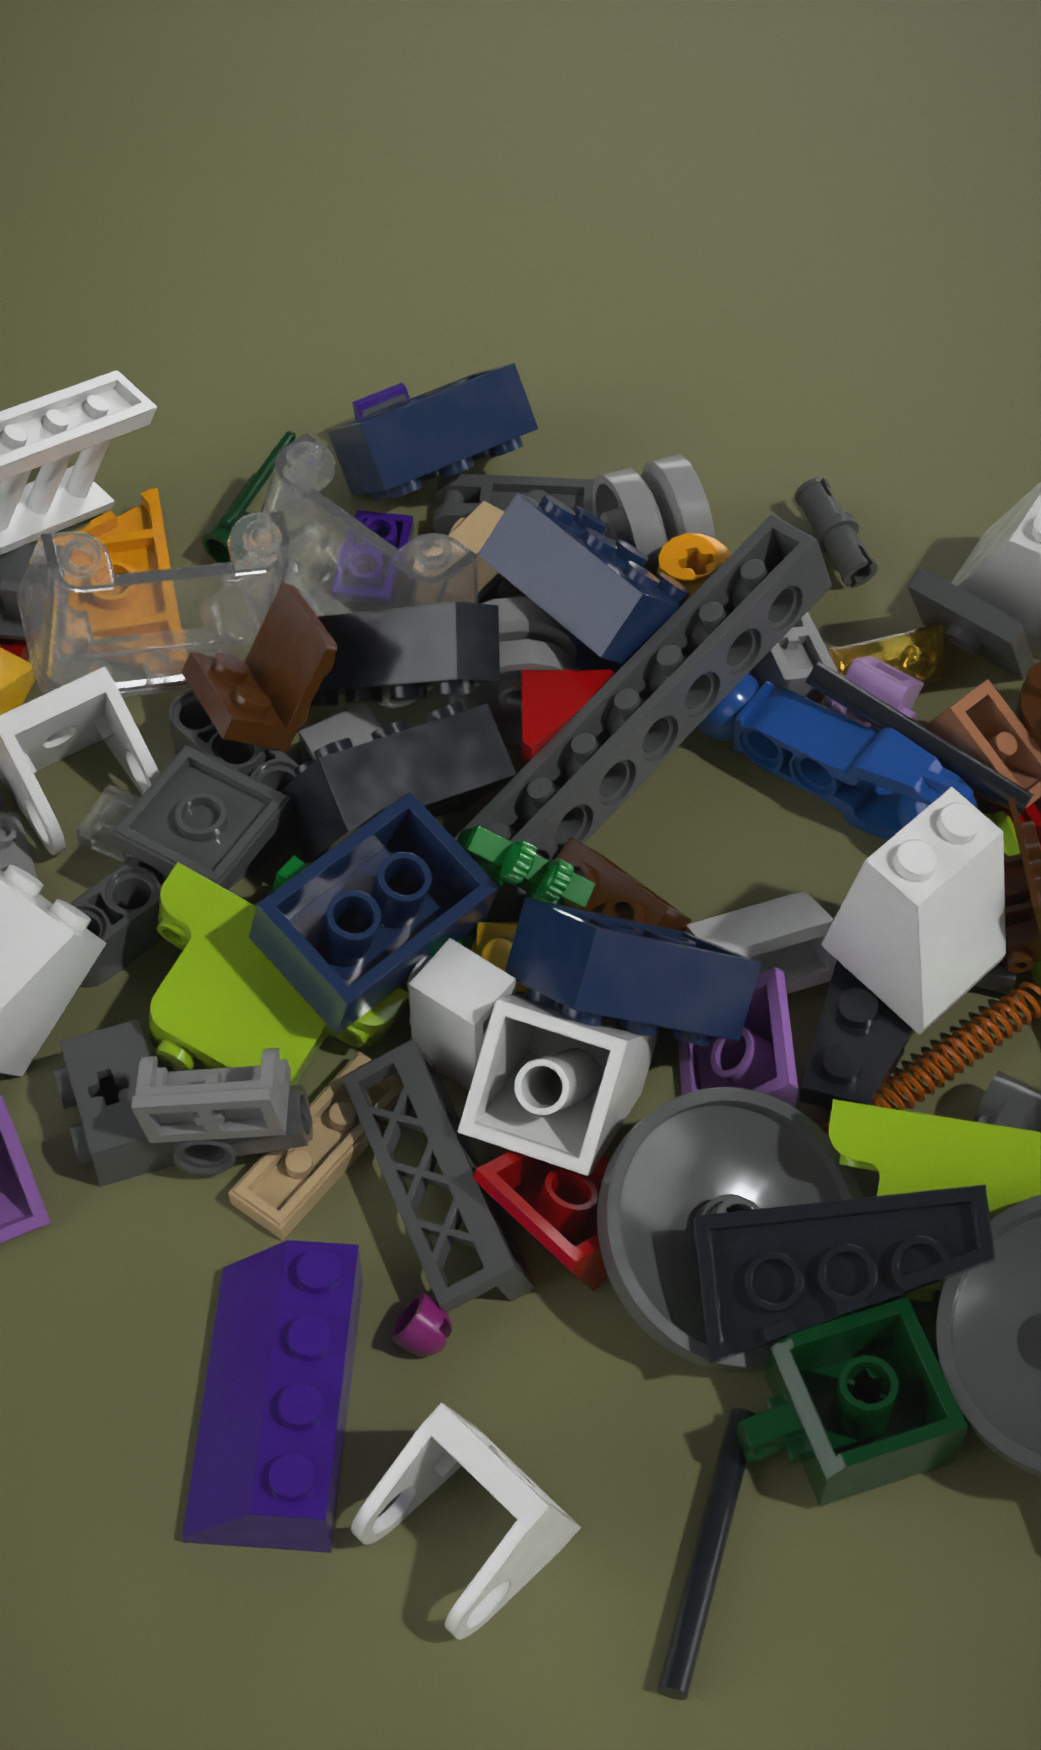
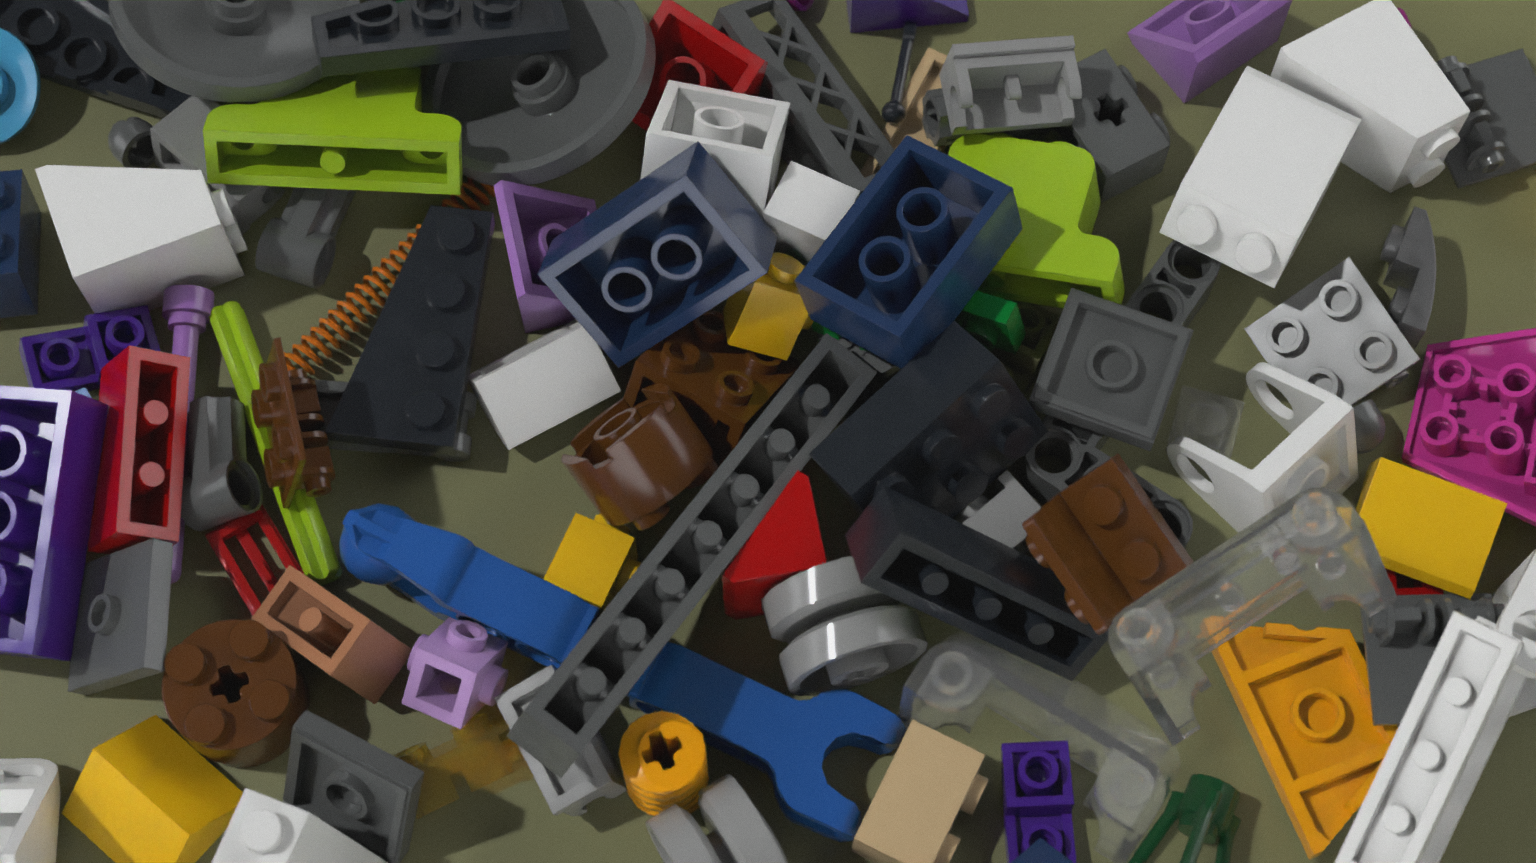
camera: 170 degrees right, 15 degrees up
(340, 1152) = (894, 110): none -> black hinge
(522, 867) = (776, 335): green hinge -> none
(581, 575) = (772, 684): dark blue brick -> none
(679, 829) = (640, 458): none -> reddish brown brick
(735, 779) = (594, 560): none -> yellow brick
(926, 912) = (395, 340): white slope -> none
(950, 757) = (404, 599): black bar -> none

